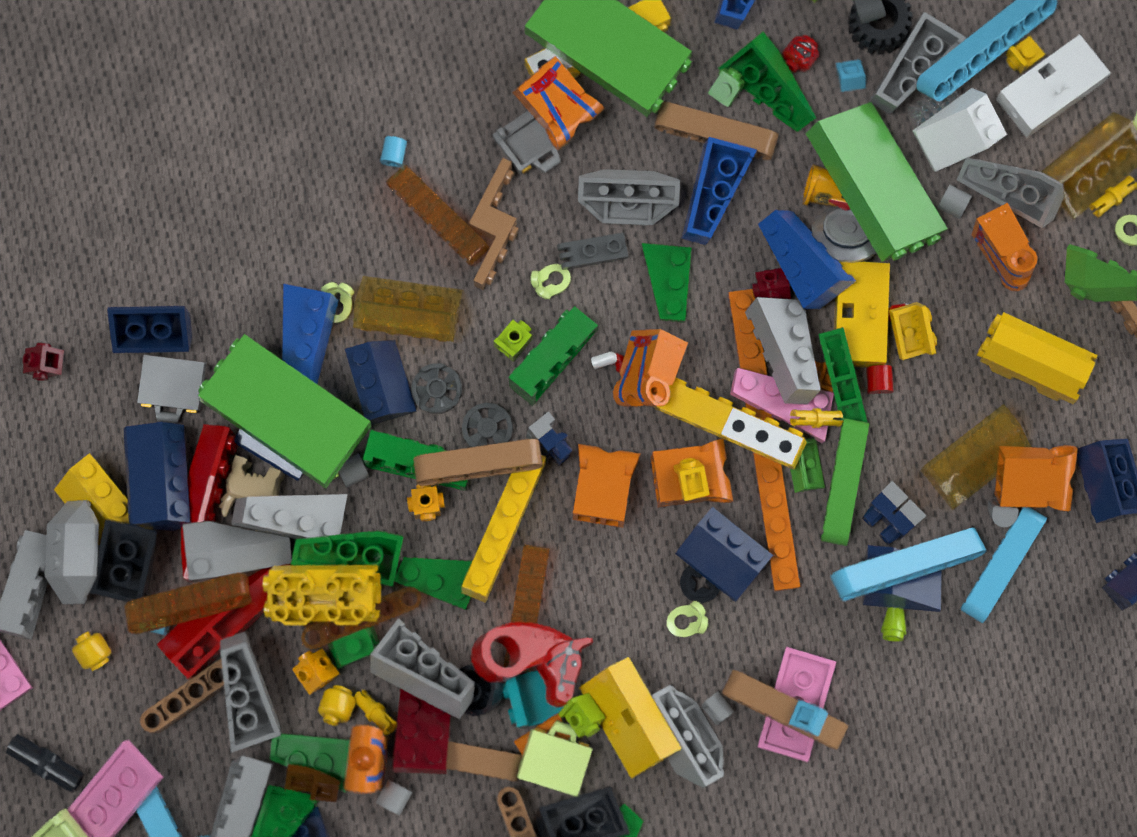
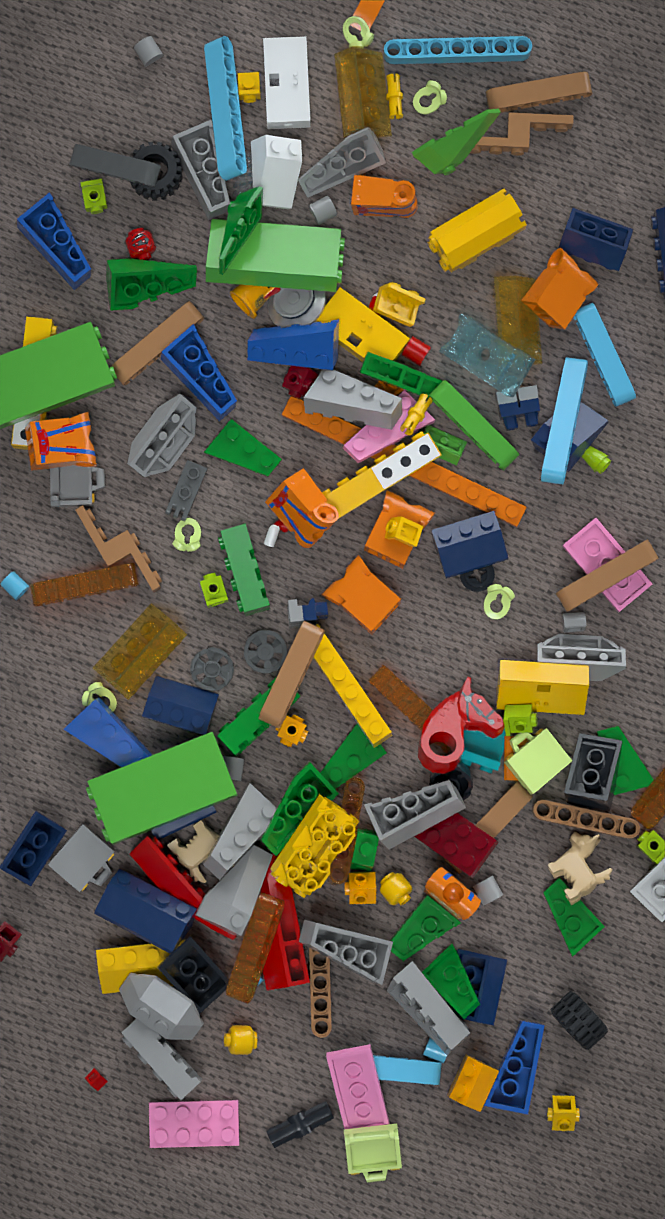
camera: 60 degrees left, 5 degrees up
(320, 785) = (444, 937): reddish brown slope -> none
(375, 712) = (419, 864): yellow pin -> none
(727, 86) = (129, 313): bright green bracket -> none
(808, 717) = (625, 563): medium azure slope -> none
(851, 75) = (179, 219): medium azure slope -> none
(884, 128) = (242, 219): none -> green wedge
(922, 471) = (506, 364): none -> clear light blue piece
(1002, 515) = (571, 333): light grey brick -> none

